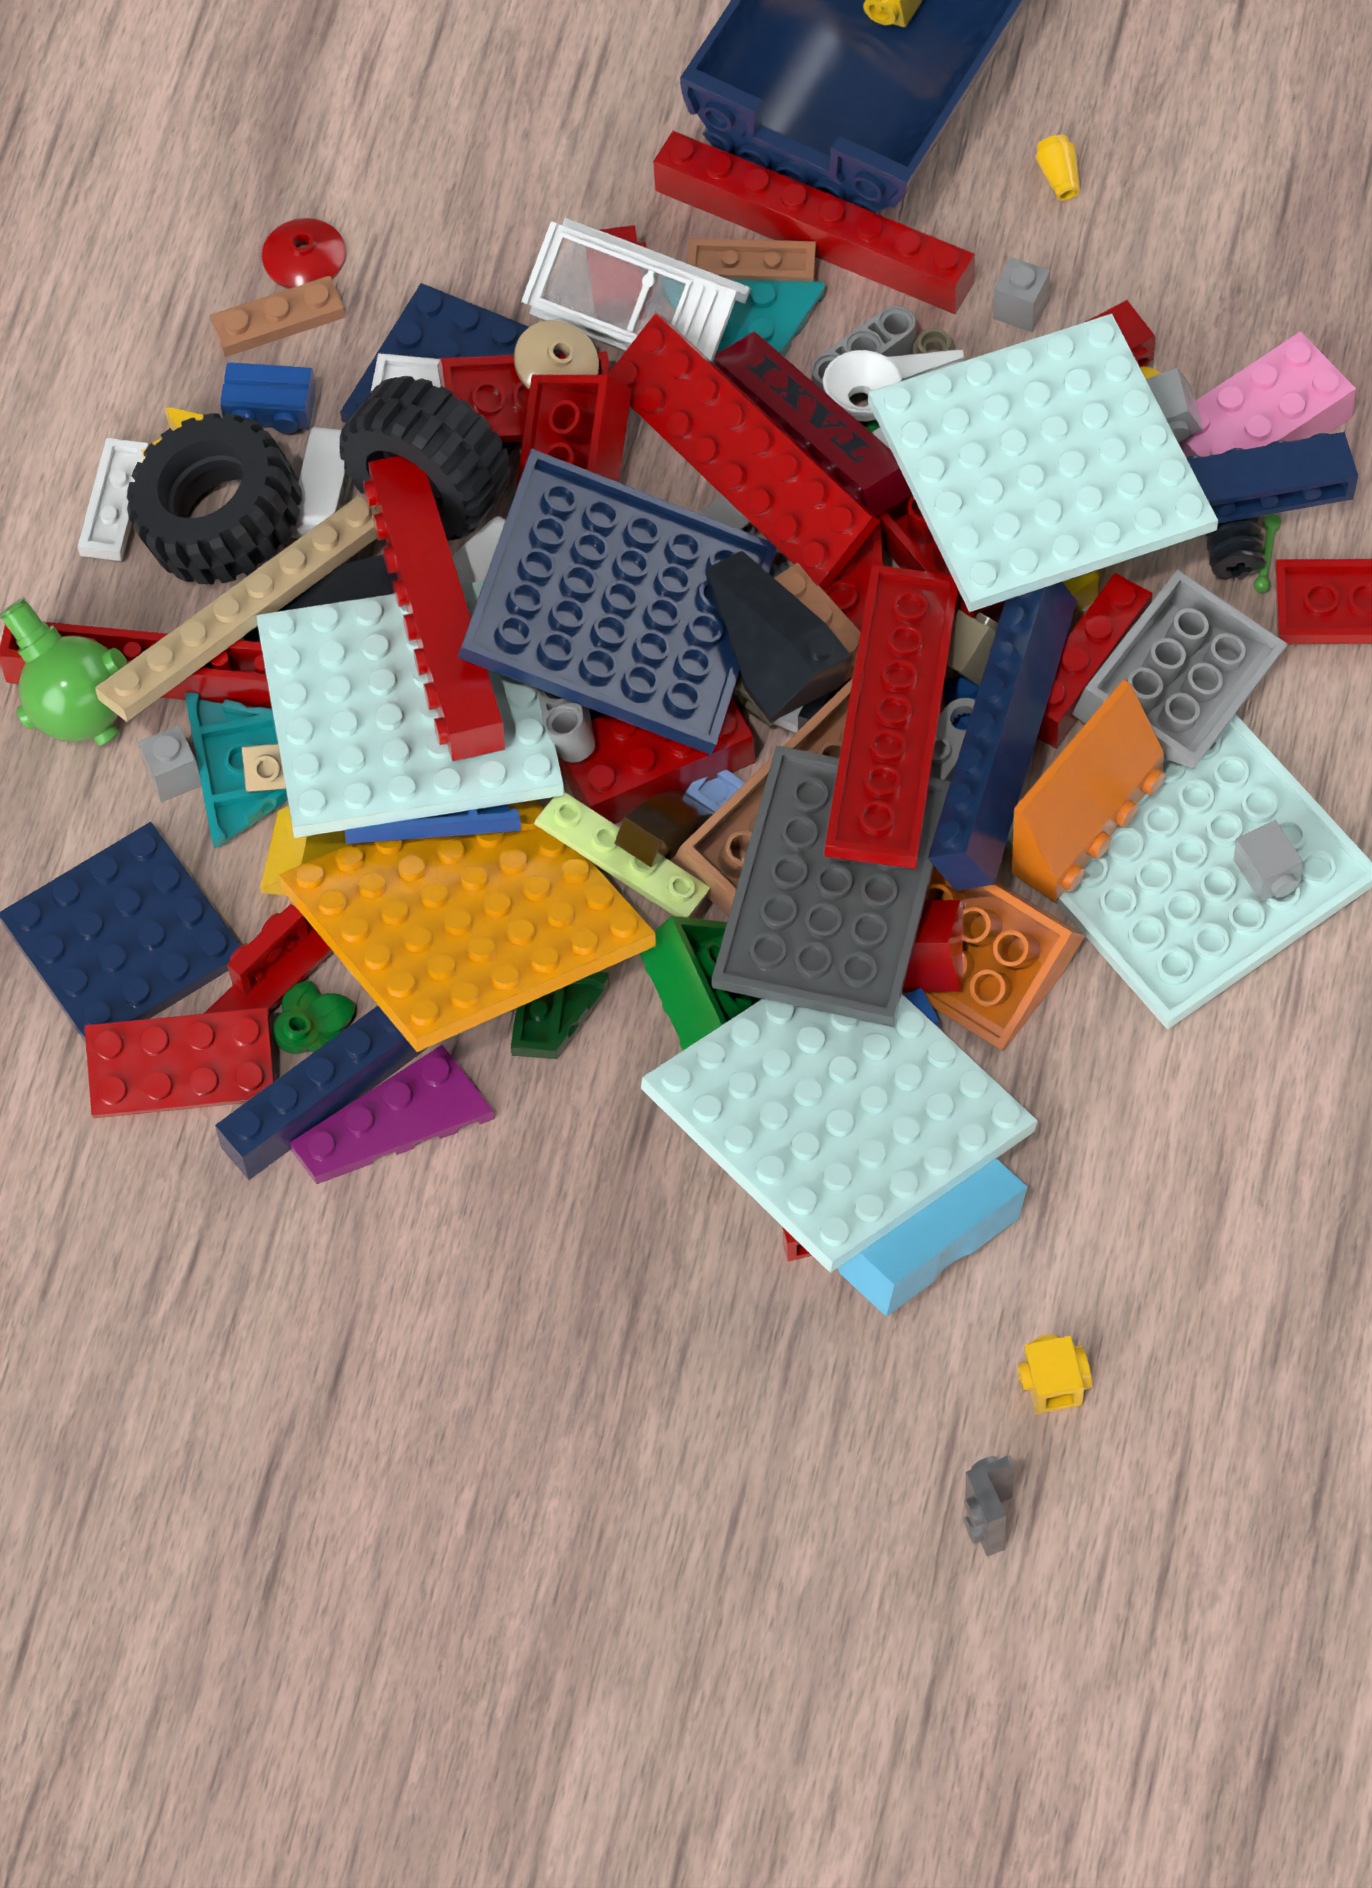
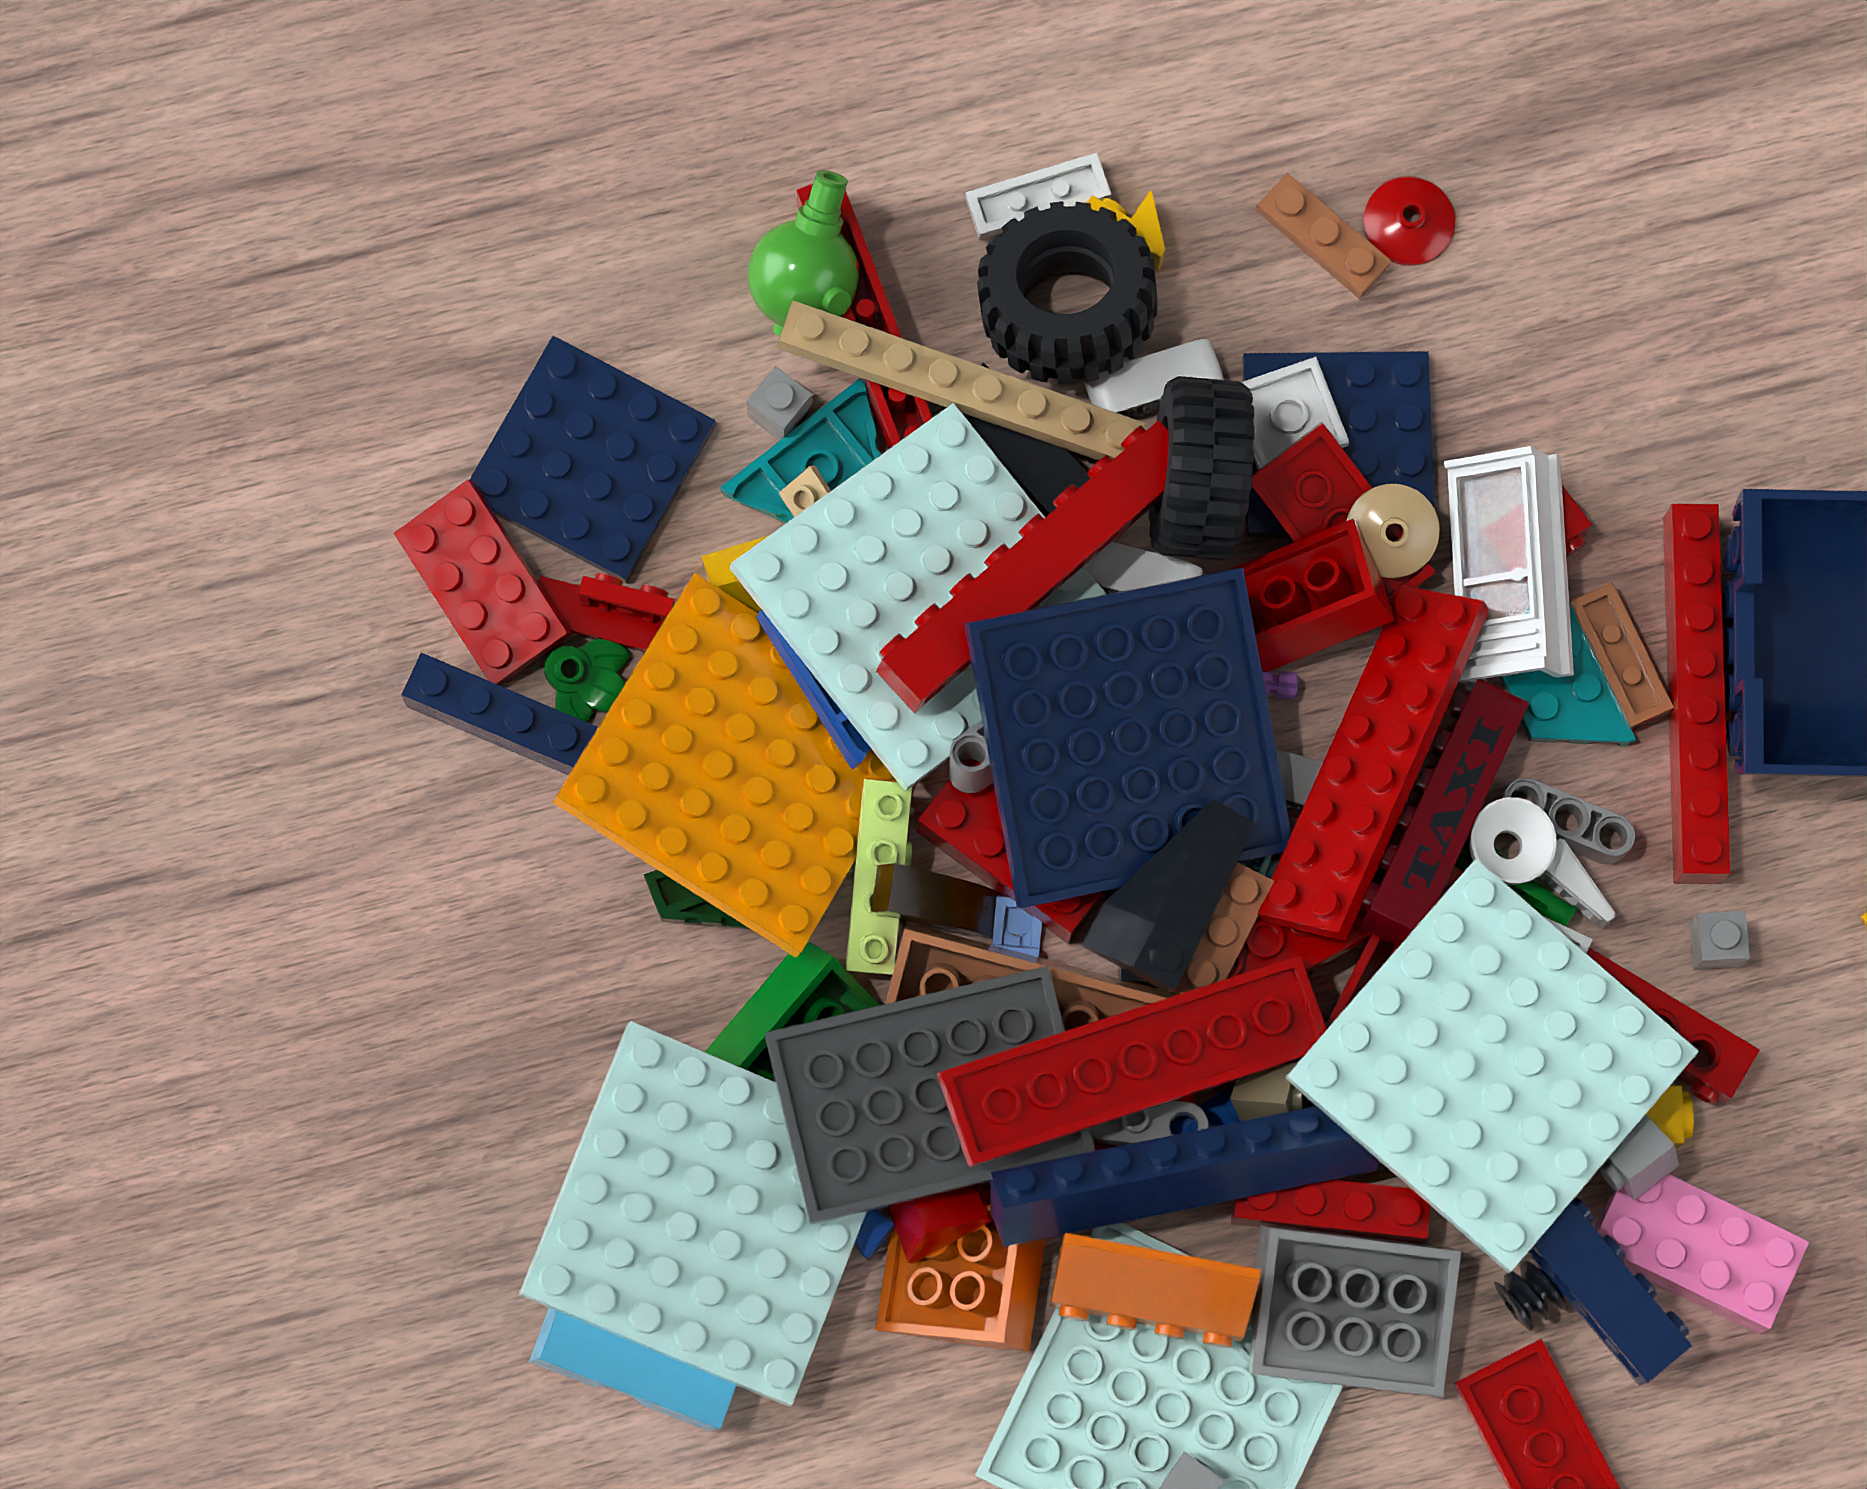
camera: 55 degrees right, 15 degrees up
(270, 395) = (1222, 277): blue brick -> none
(408, 1108) = (520, 804): magenta wing -> none
(933, 339) = (1626, 875): dark tan plate -> none
(1271, 524) = (1515, 1335): bright green hinge -> none

